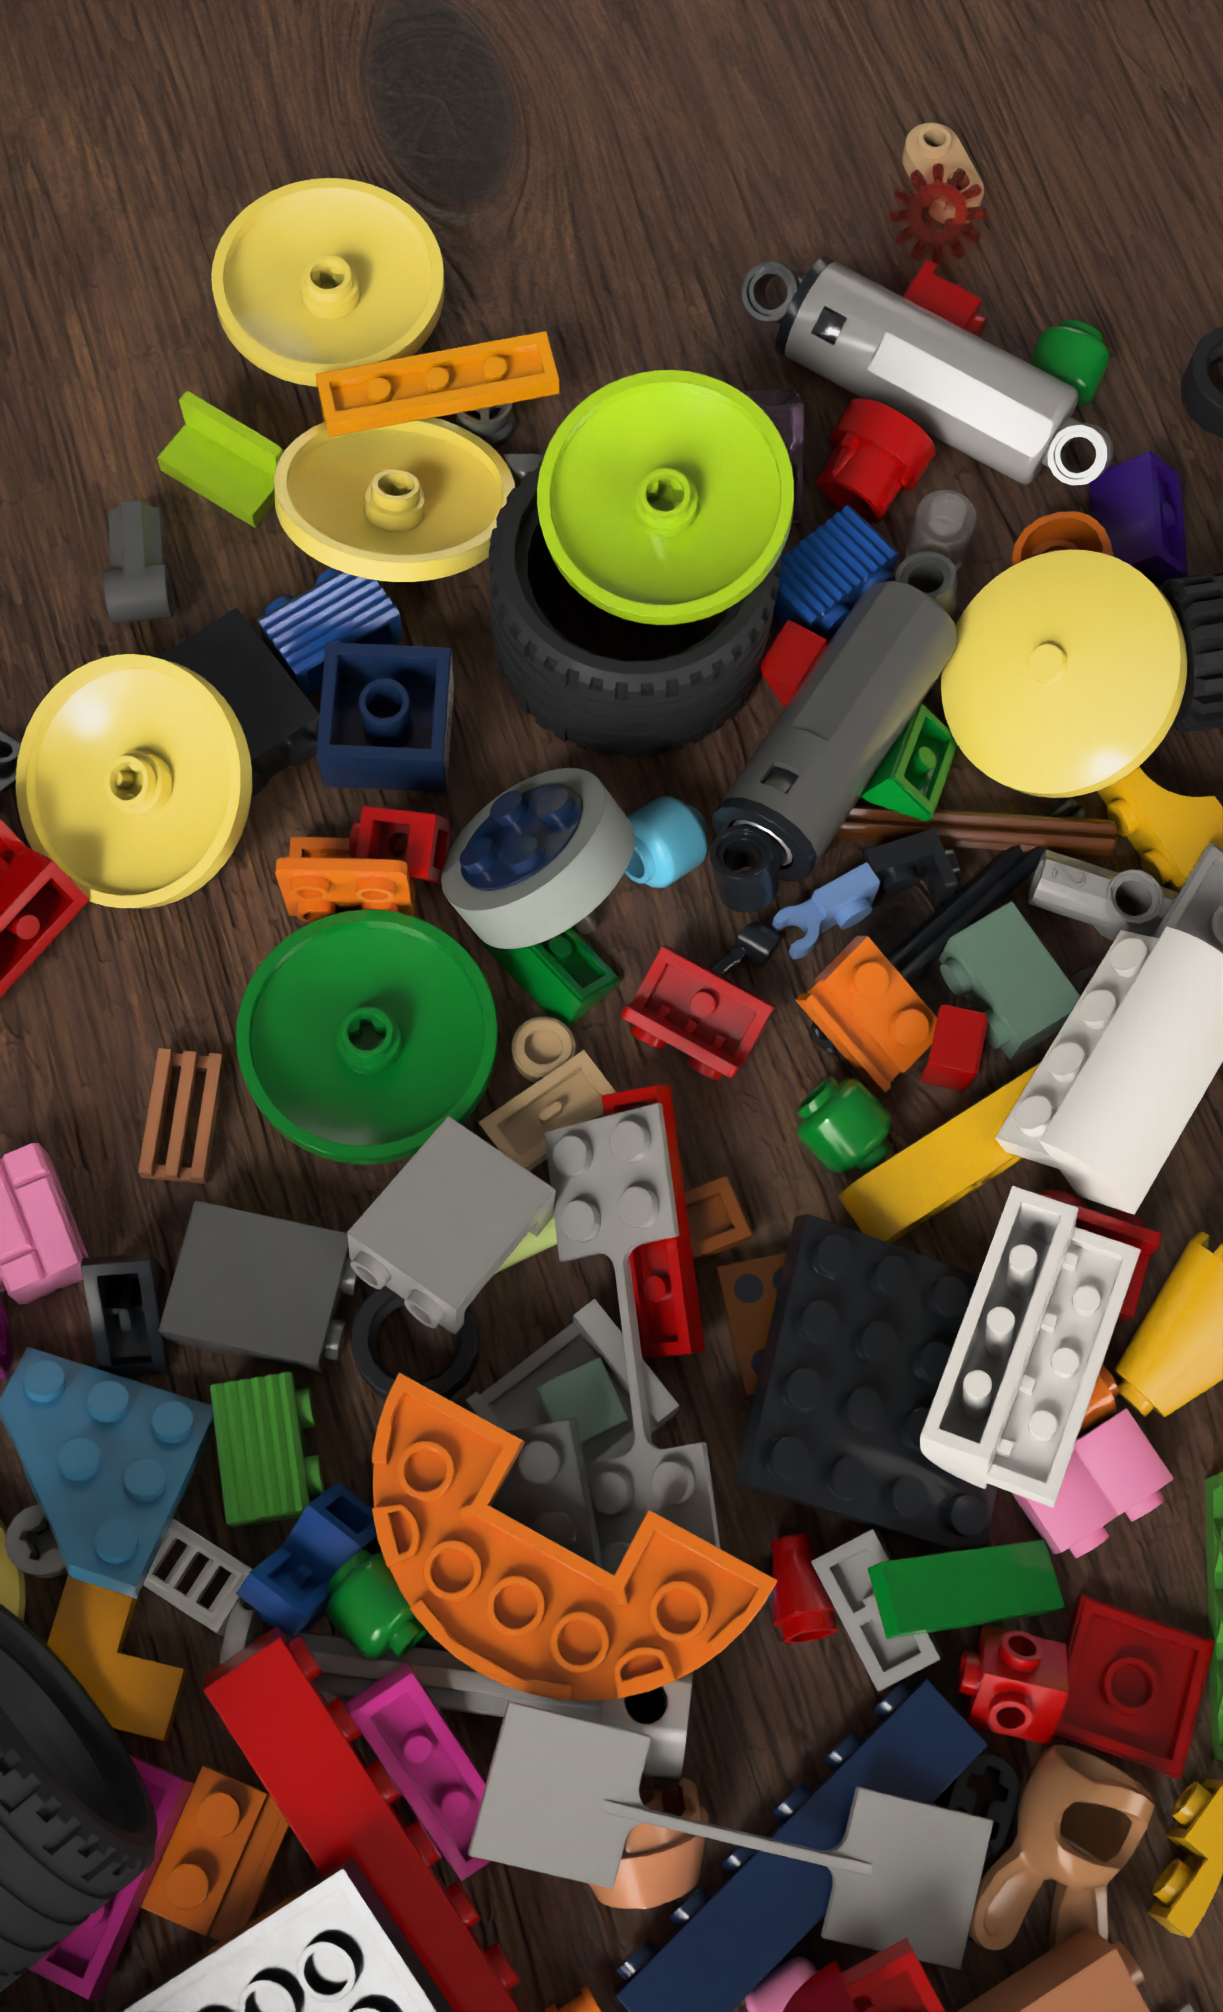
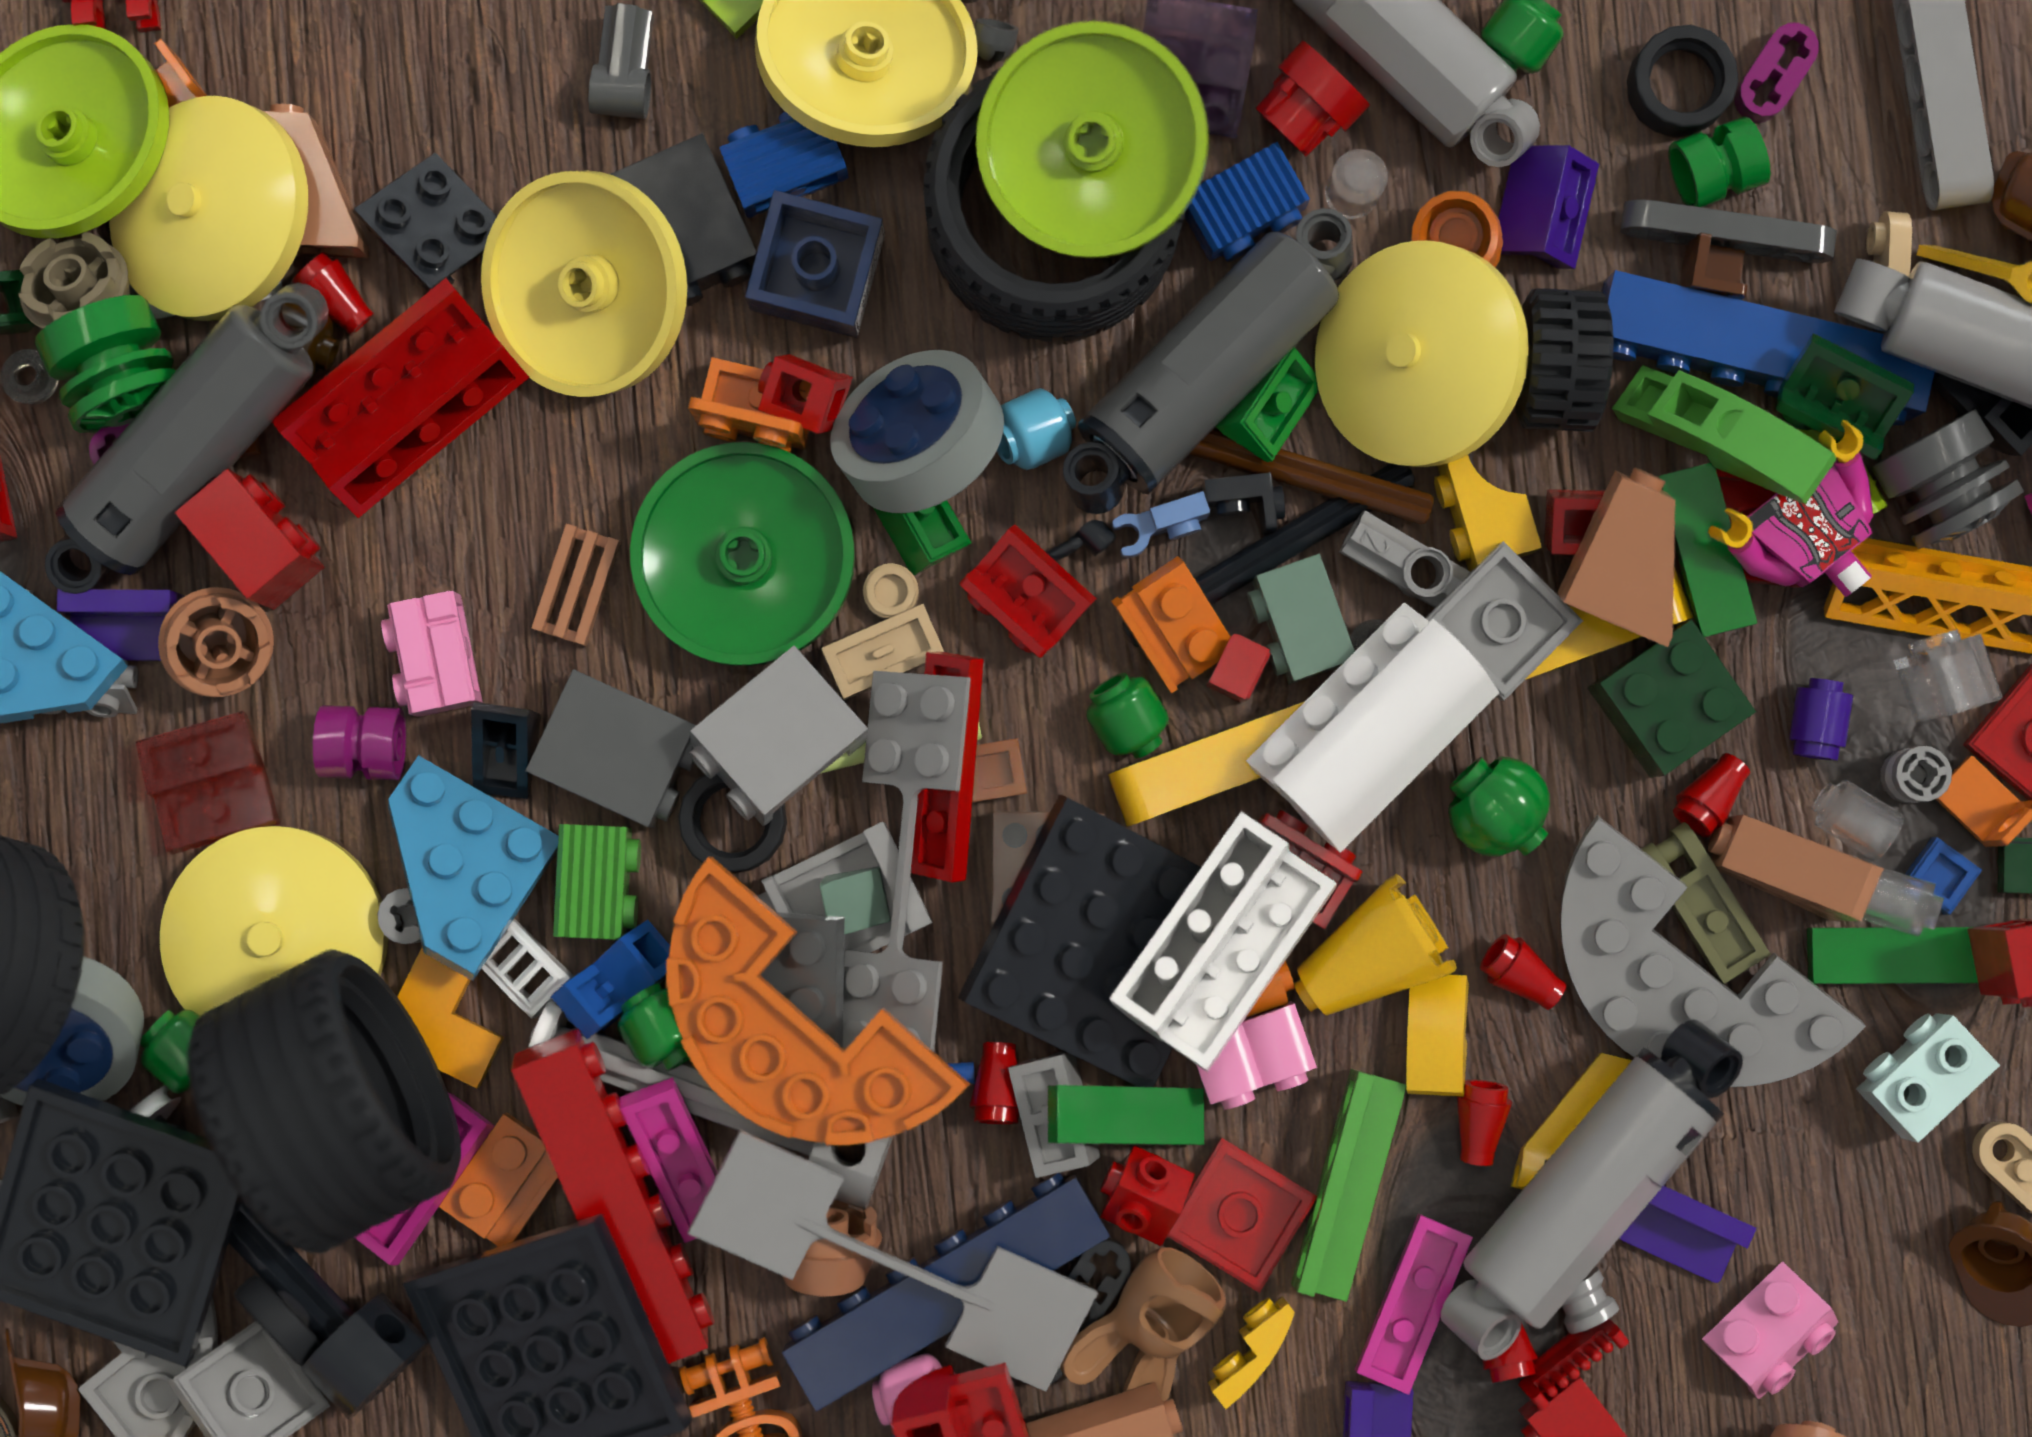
camera: 10 degrees right, 15 degrees up
(791, 659) = (1187, 283): red slope -> none

